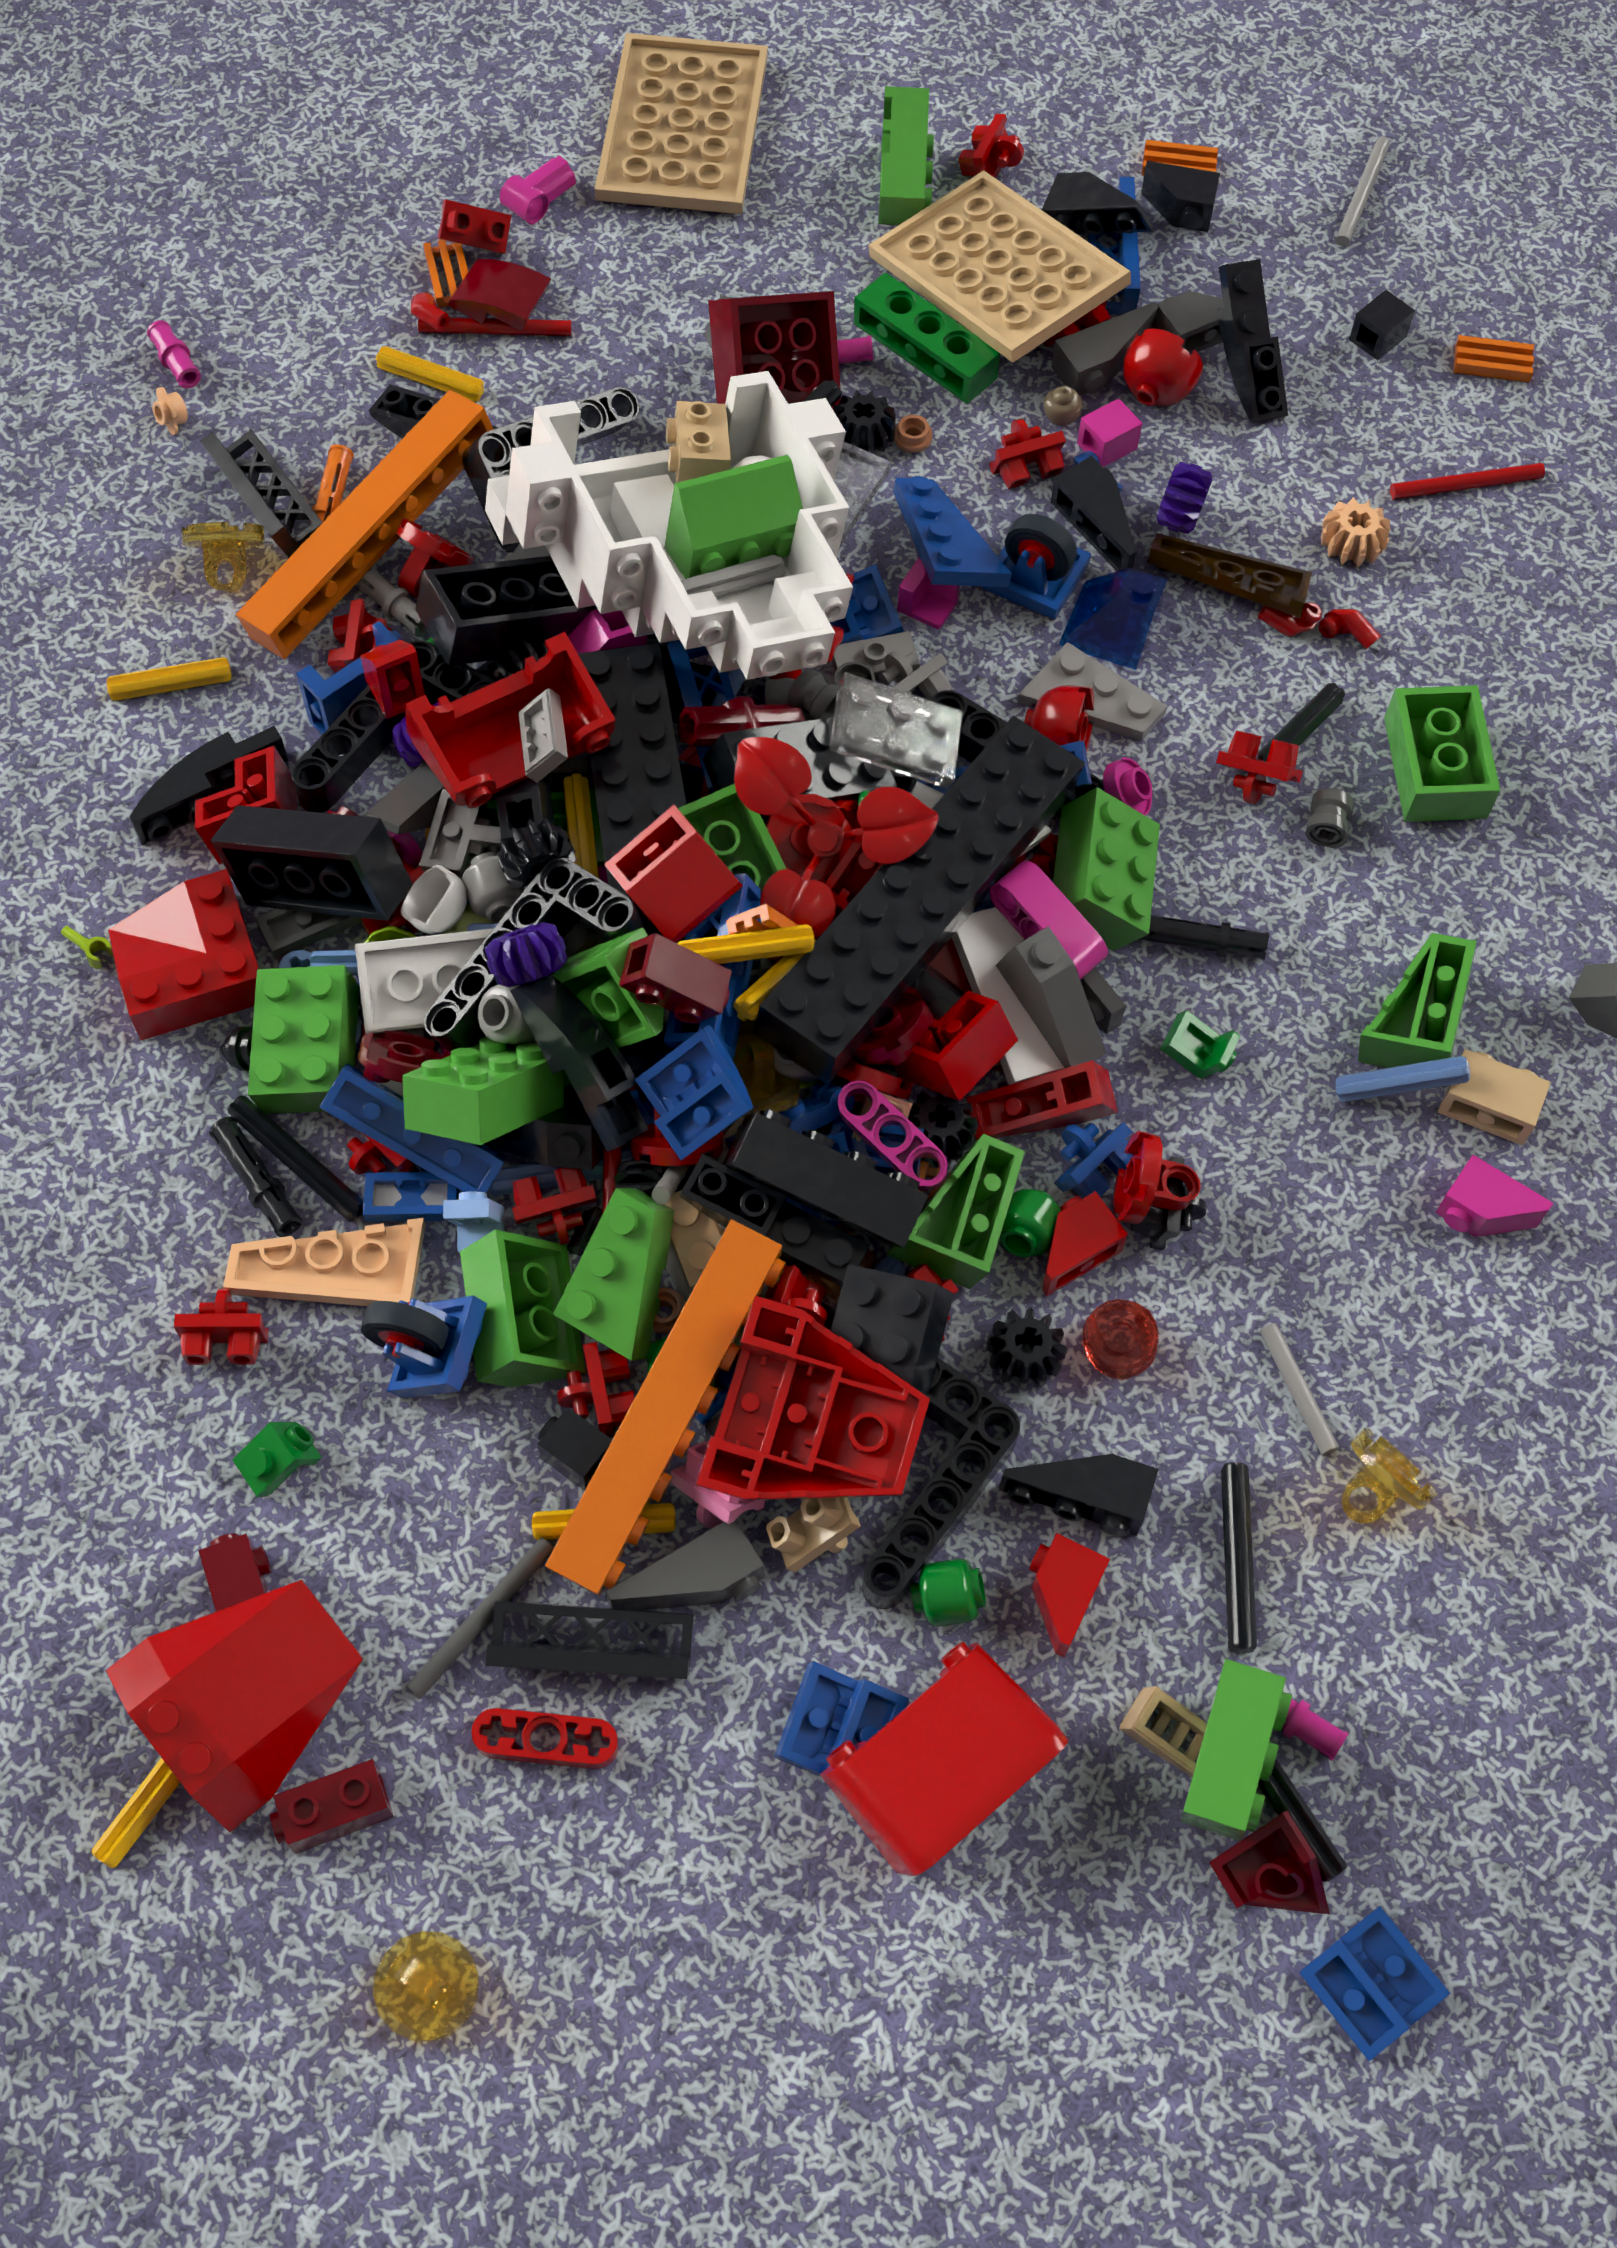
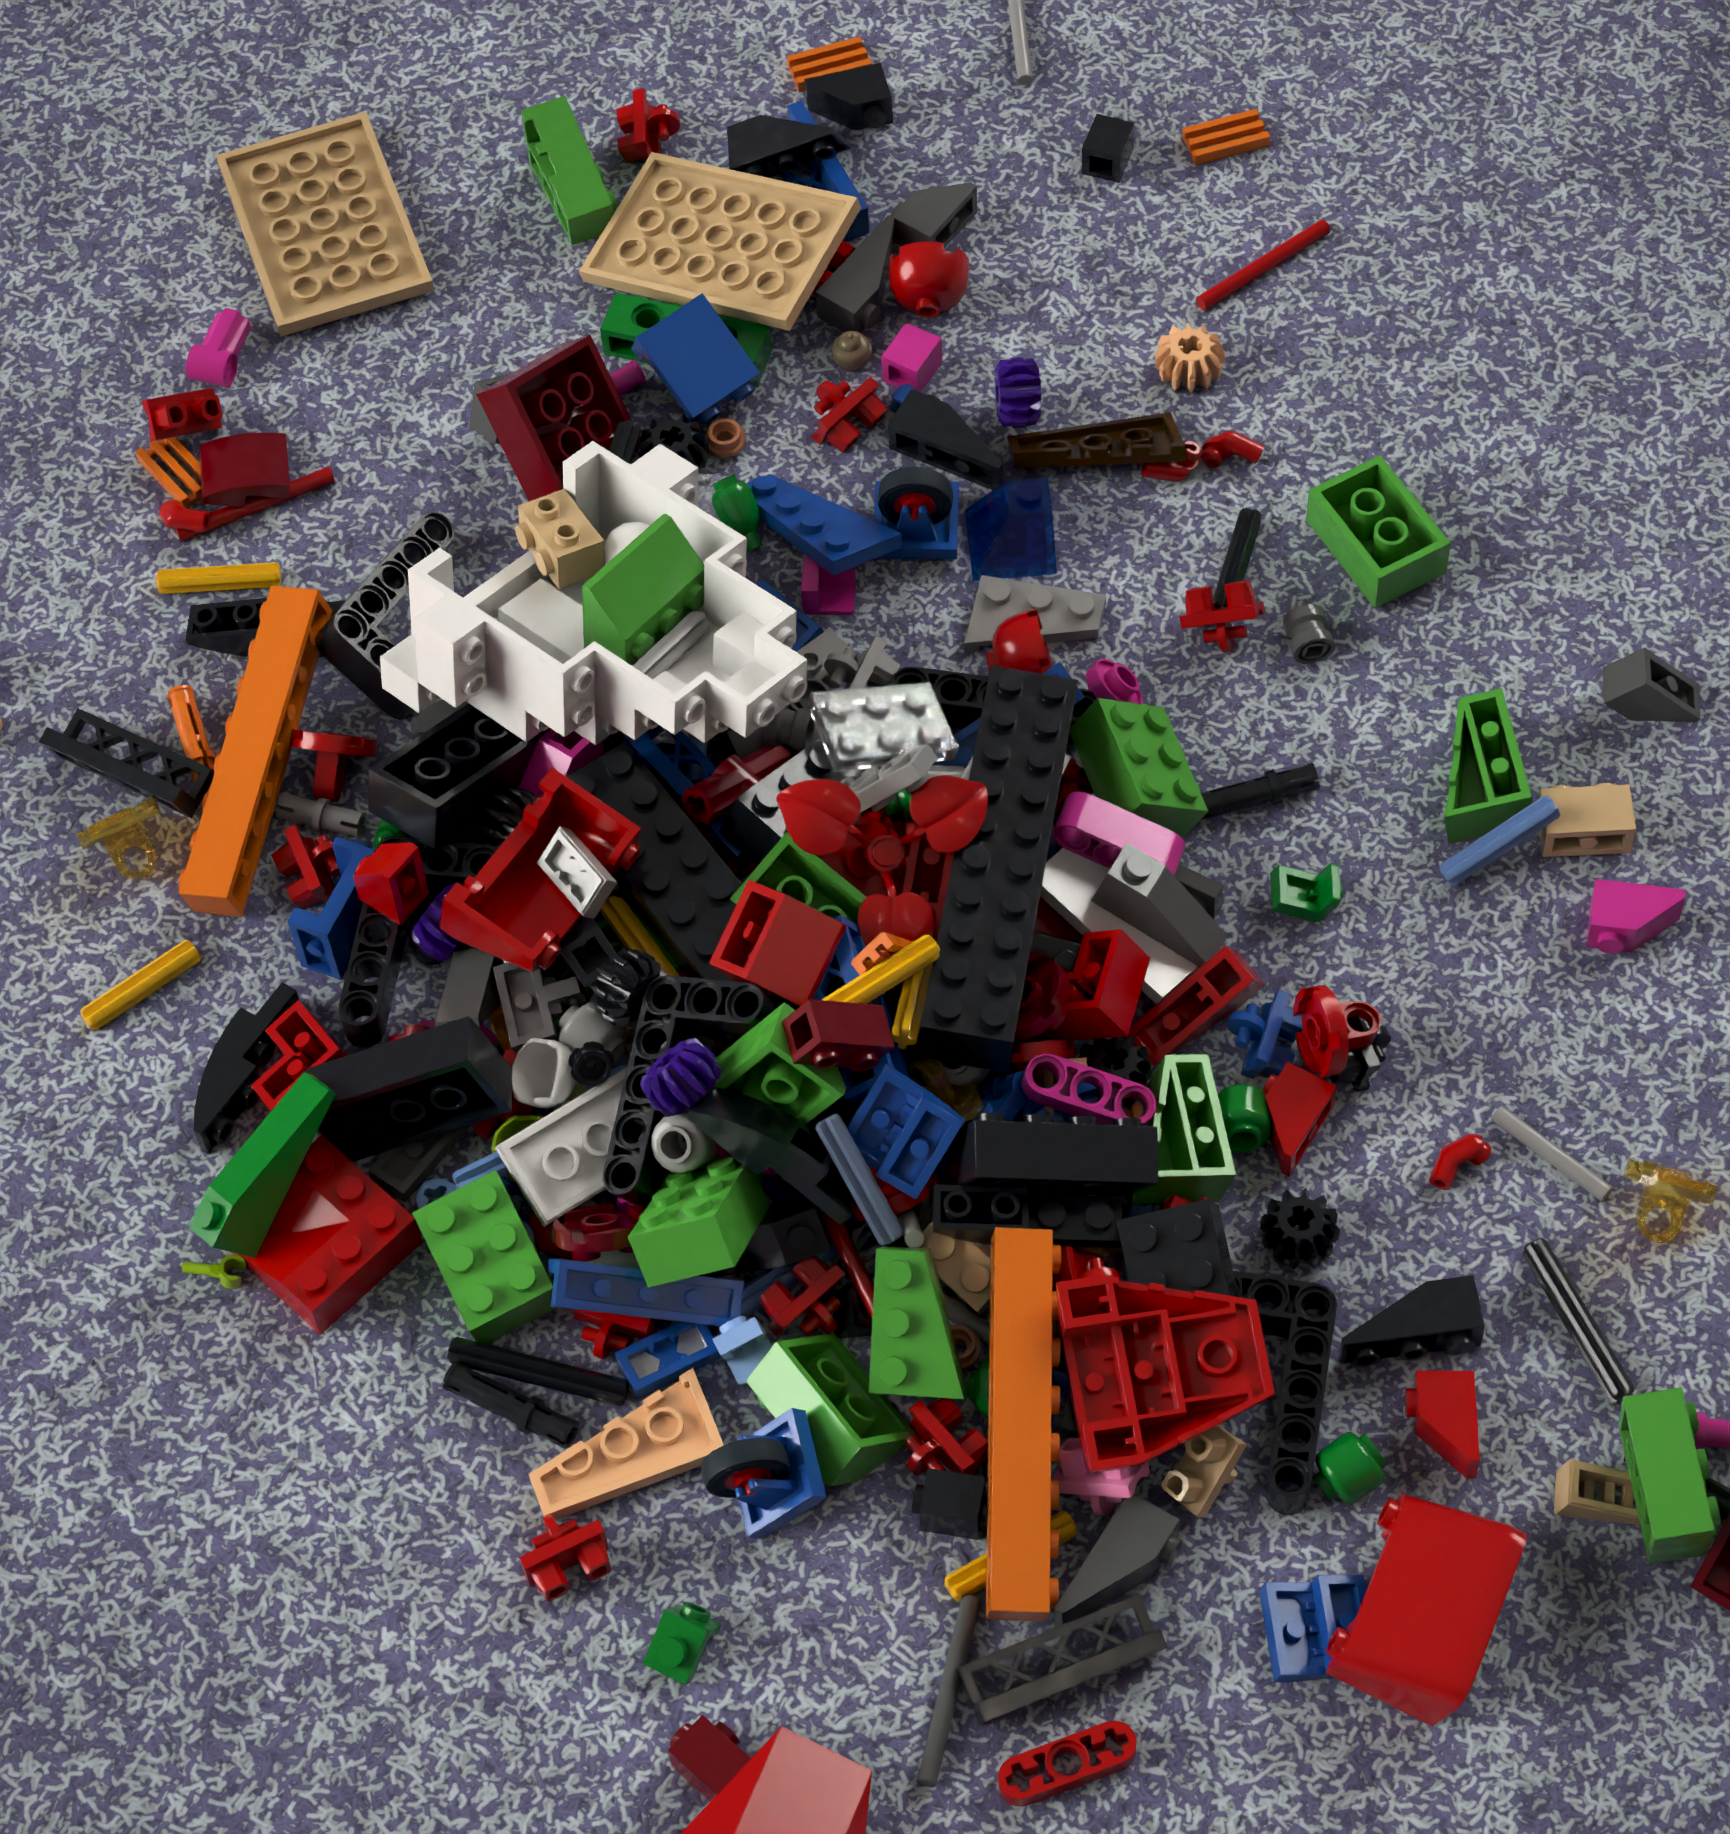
camera: 20 degrees left, 5 degrees down
(140, 883) = (257, 1178): none -> green wedge
(238, 1048) = (428, 1295): black plate -> none
(464, 917) = (591, 1075): none -> black plate
(638, 1119) = (859, 1180): none -> sand blue axle
(842, 776) = (906, 771): none -> light grey wing
(885, 496) = (737, 508): none -> green plant
(920, 355) = (698, 360): none -> blue panel
(1120, 1338) = (1376, 1182): clear red piece -> none
(1206, 1347) = (1451, 1156): none -> red arm
(1246, 338) = (1000, 224): black slope -> none

